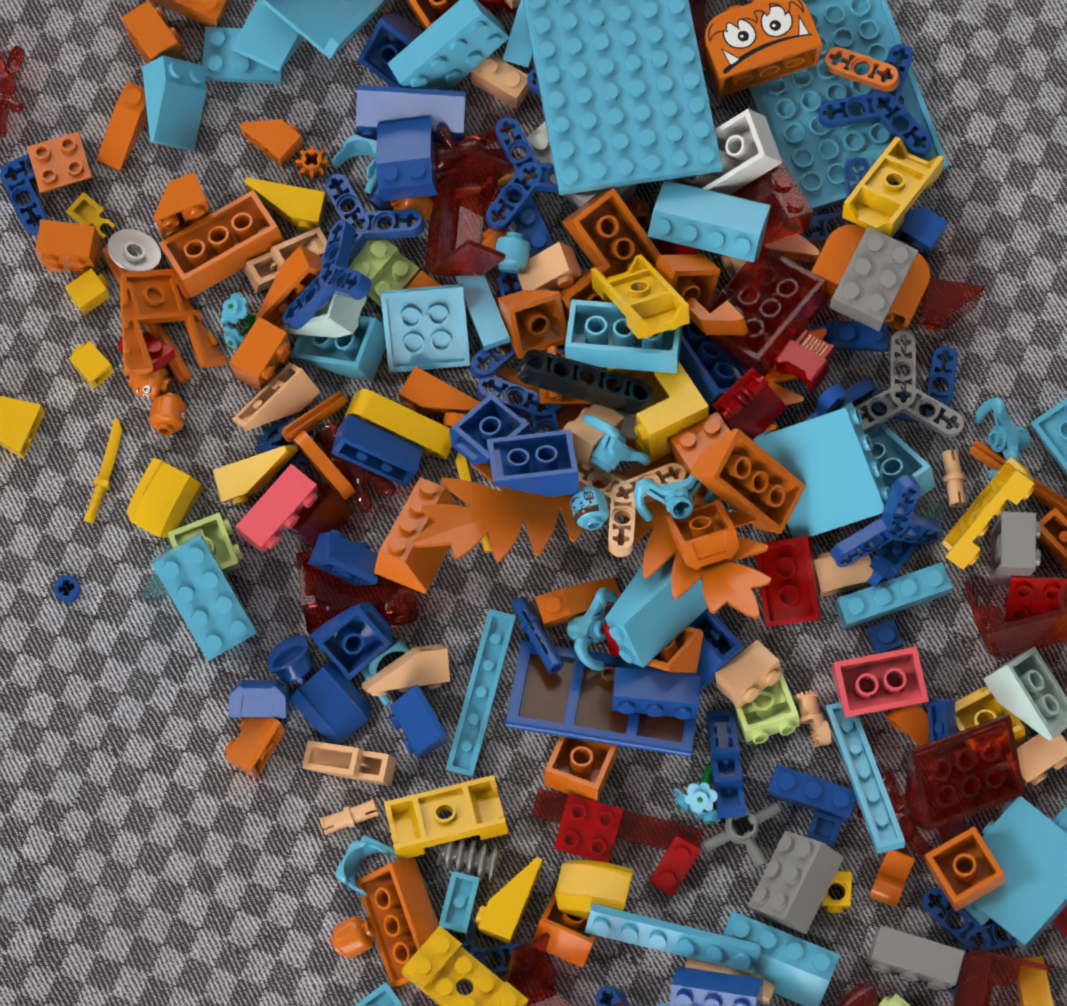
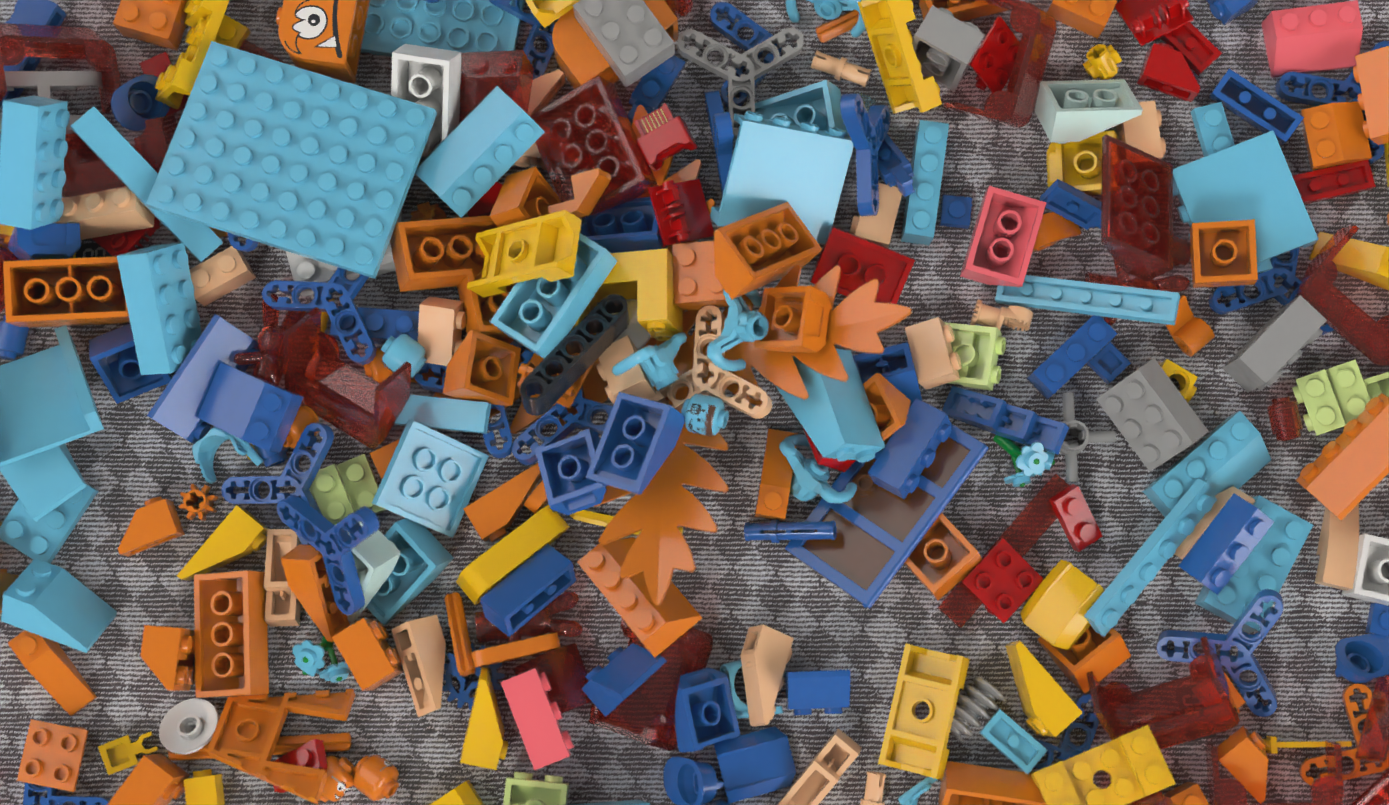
camera: 65 degrees left, 5 degrees up
(480, 693) = (817, 614): medium azure plate -> none

